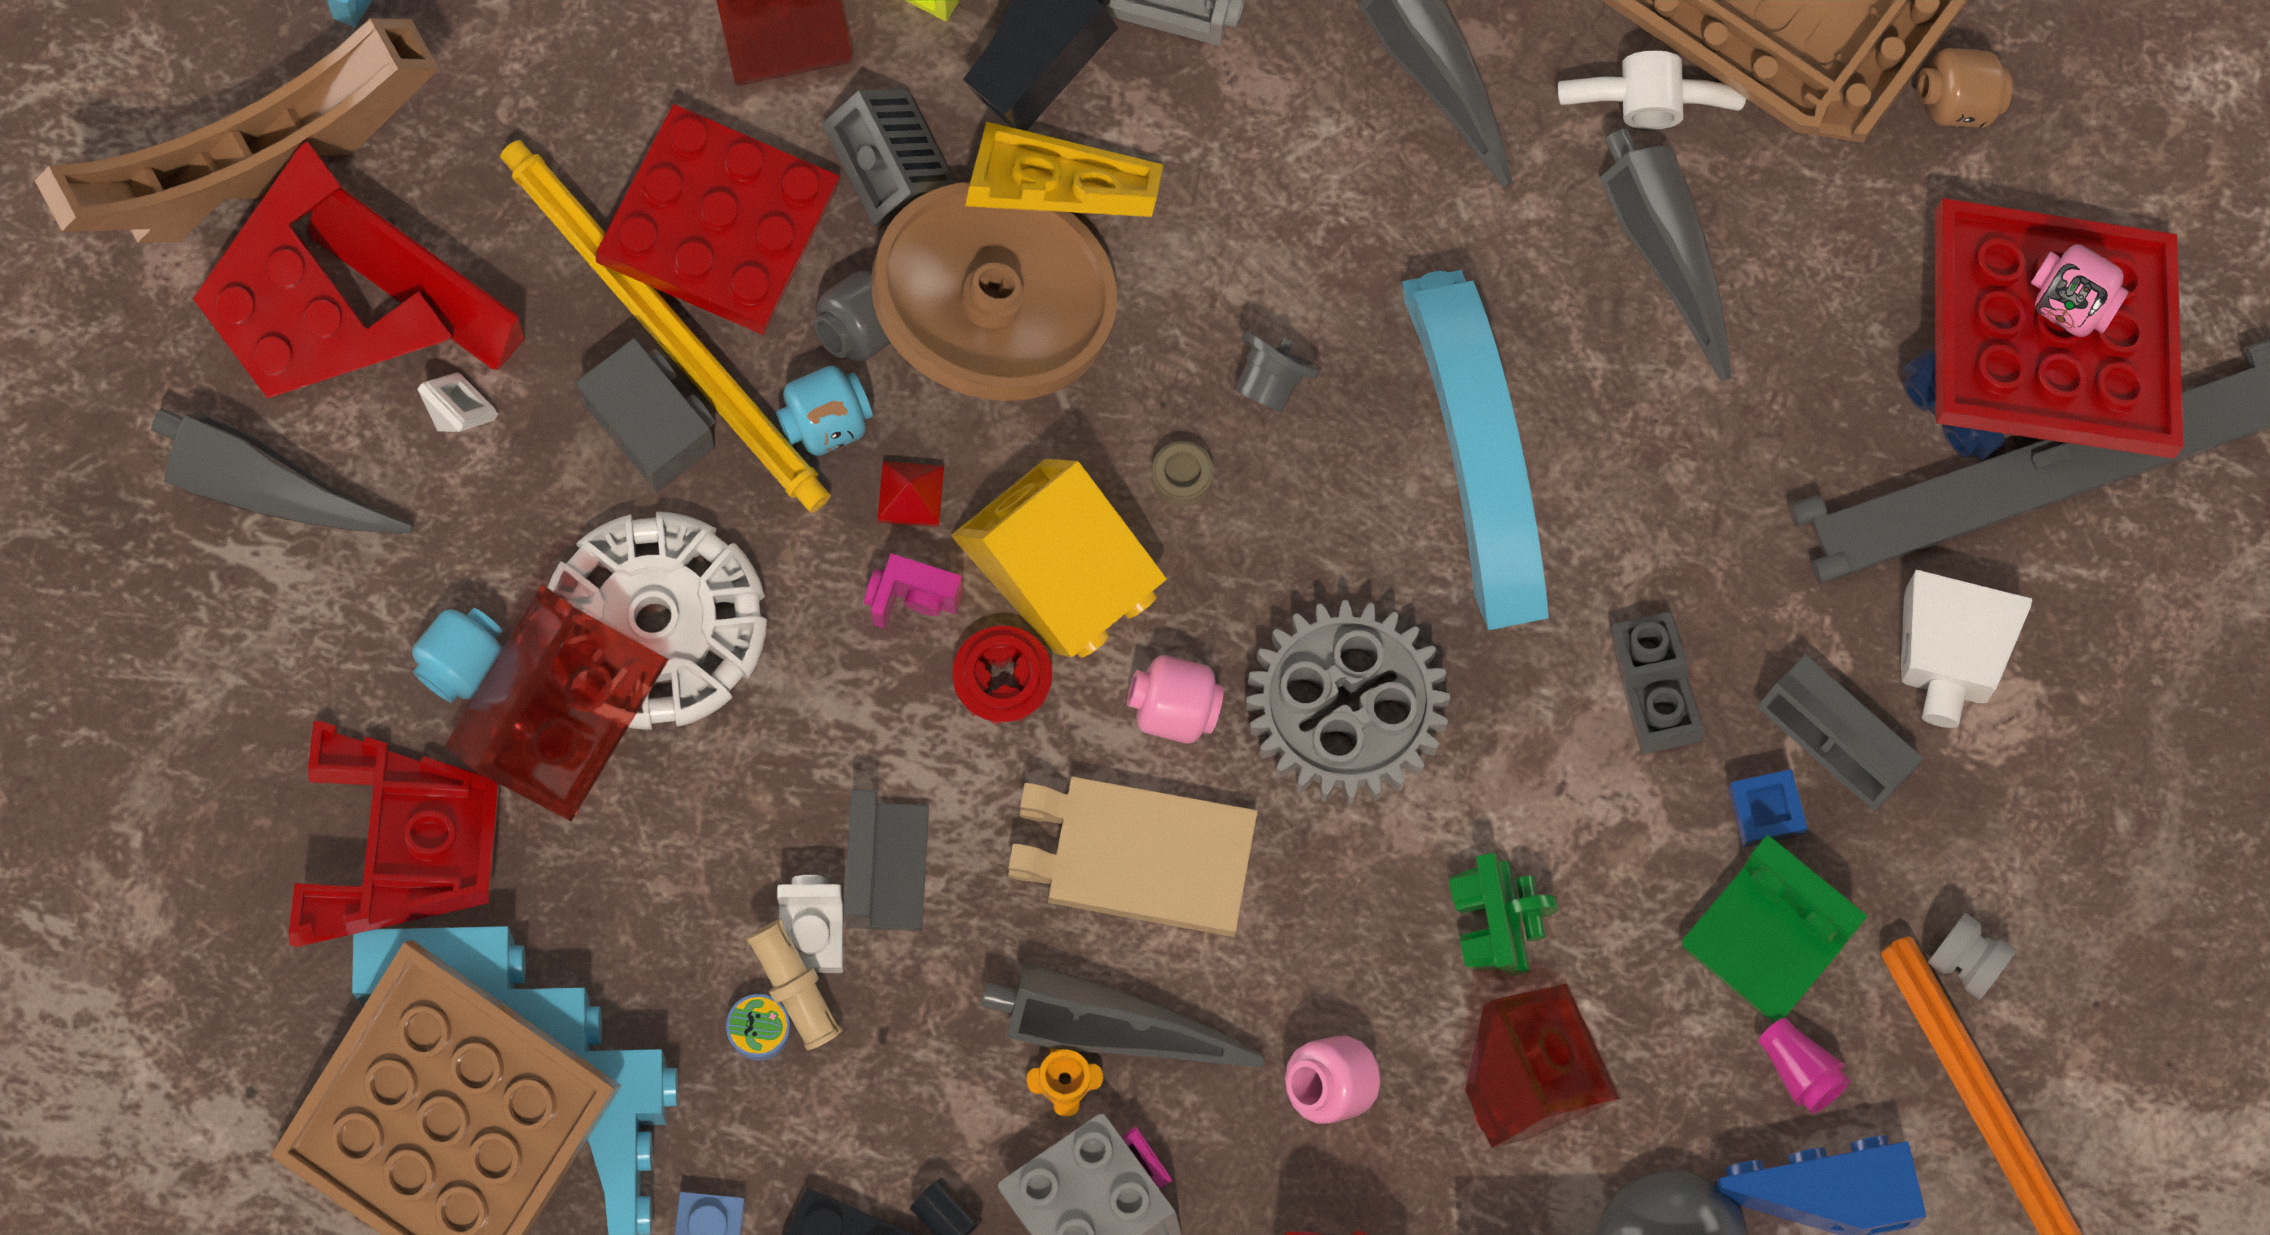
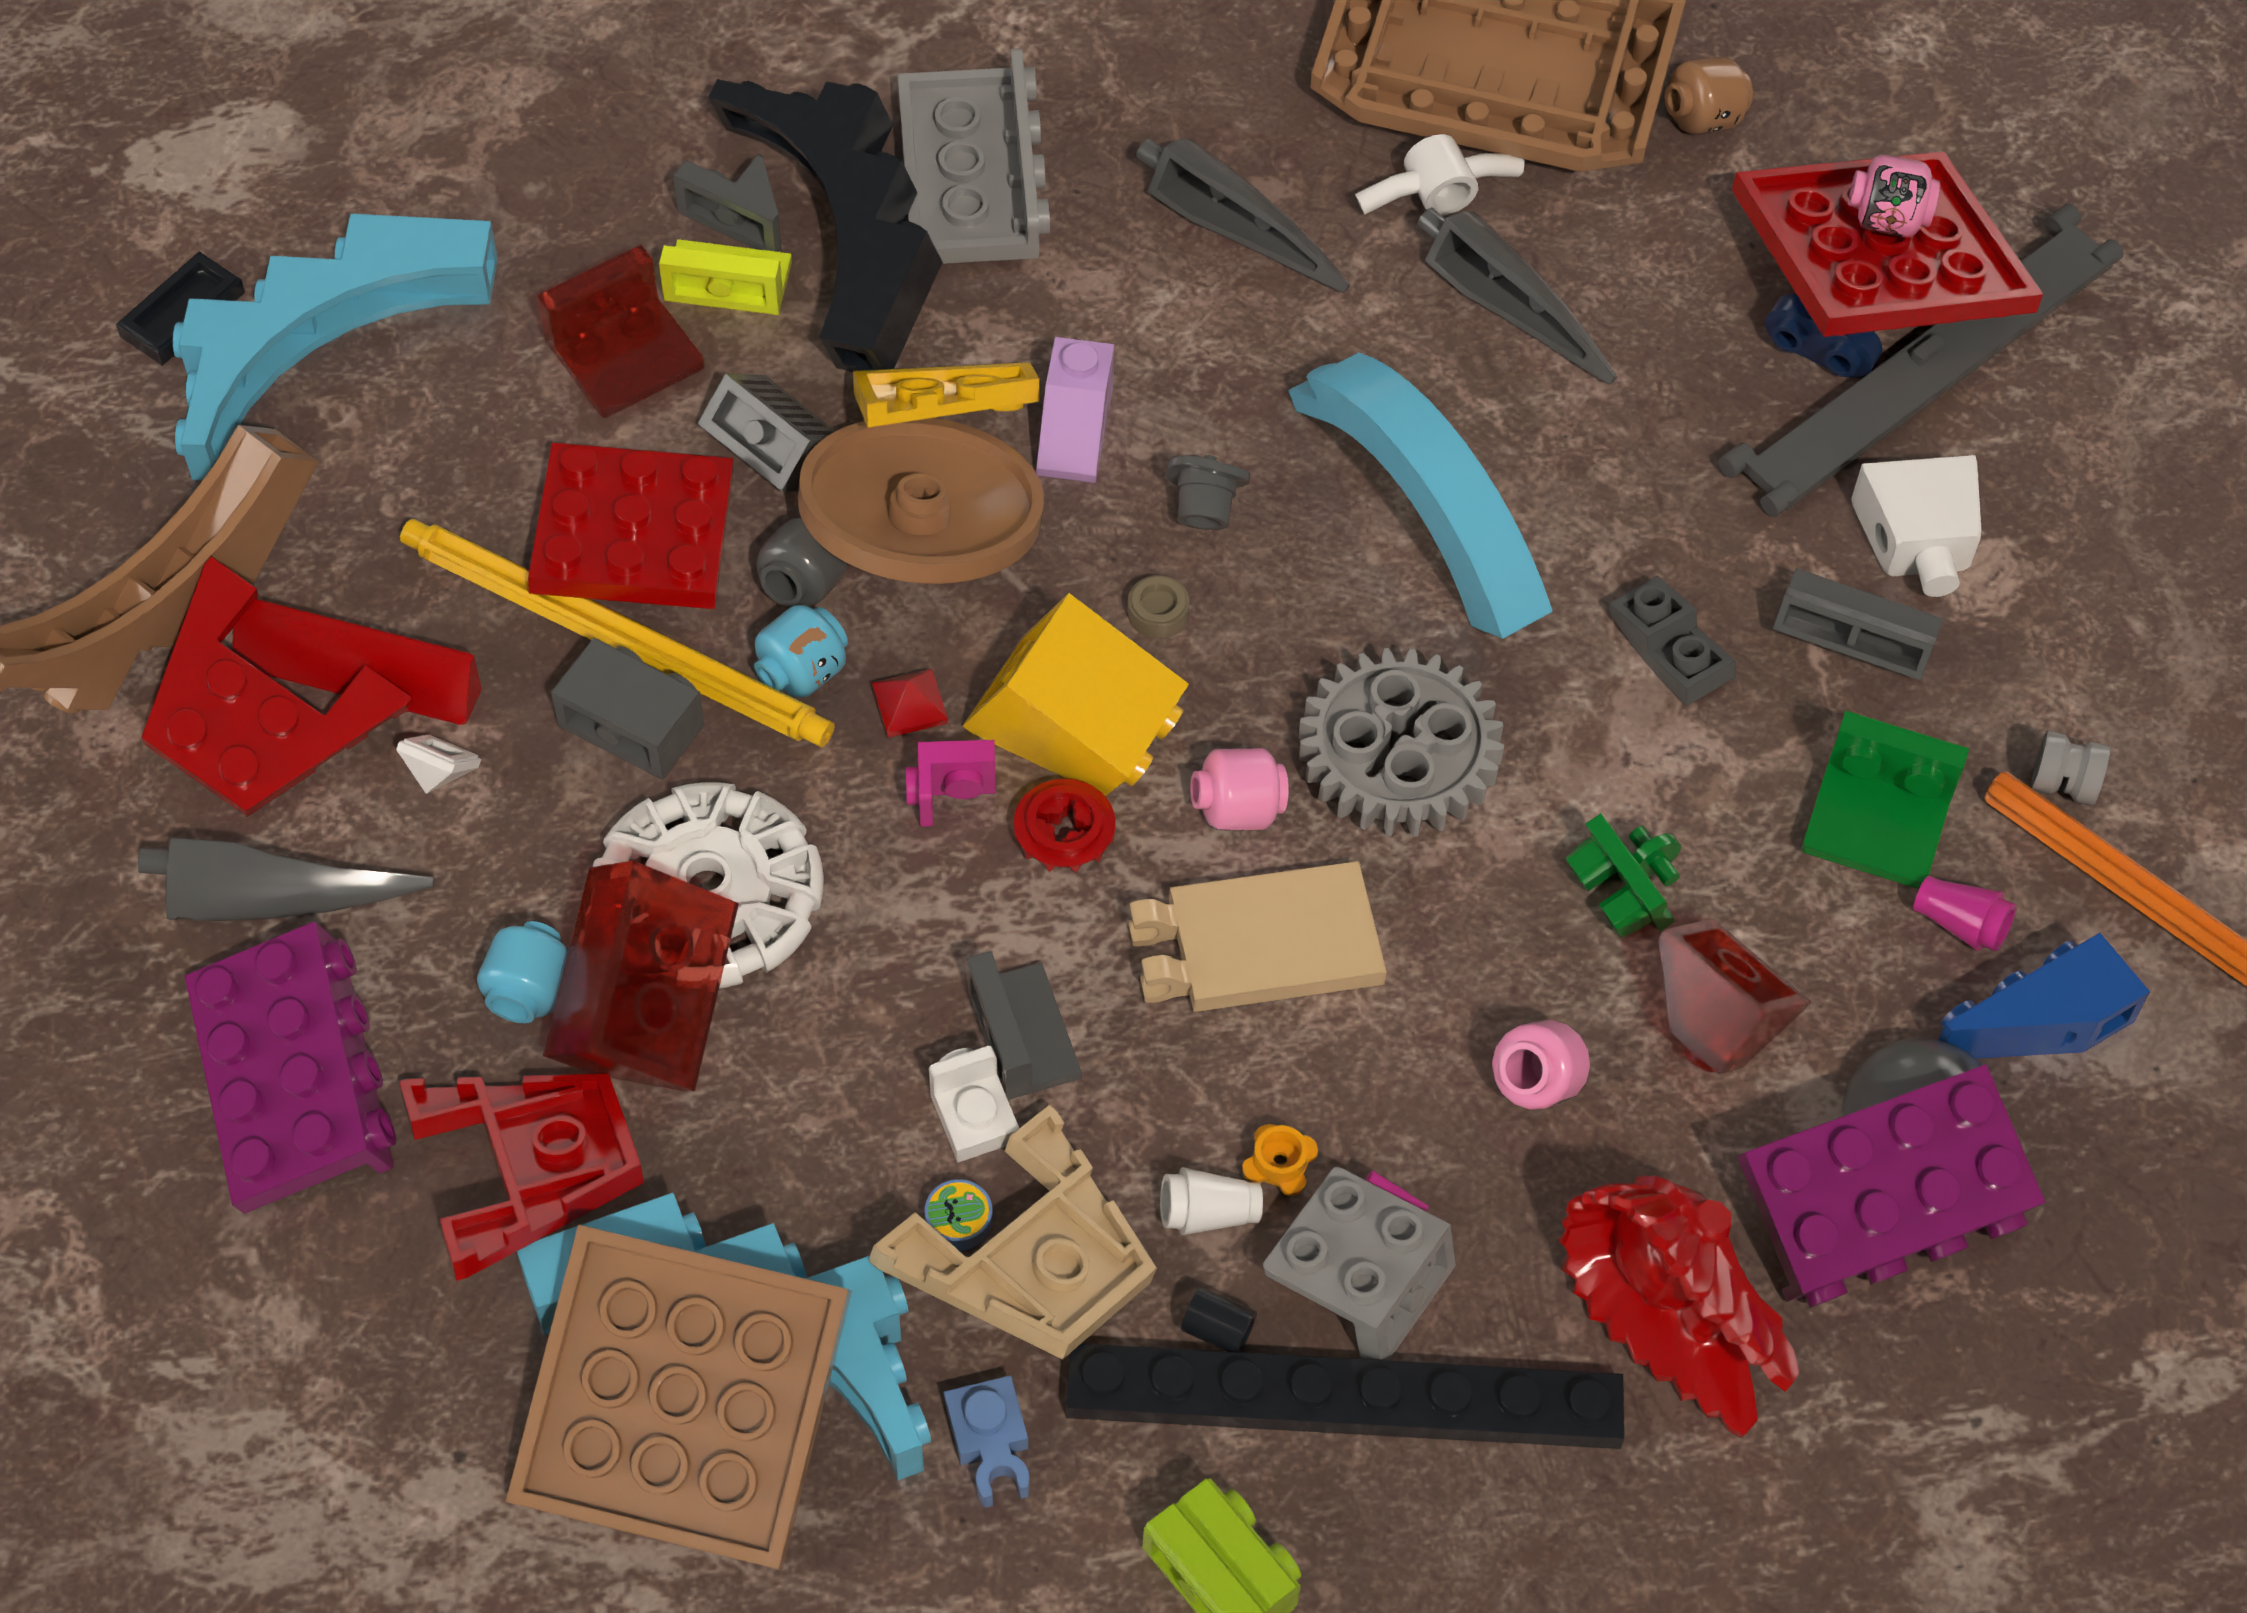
camera: 20 degrees left, 15 degrees down
(223, 672) = (289, 1066): none -> magenta bracket
(794, 984) = (980, 1157): tan pin -> none
(815, 1115) = (1047, 1272): none -> tan wing
(981, 1098) = (1208, 1201): none -> white cone
(1094, 1018) = (1265, 1094): dark grey piece -> none
(1183, 237) = (1075, 409): none -> lavender slope
(1767, 806) = (1819, 706): blue plate -> none

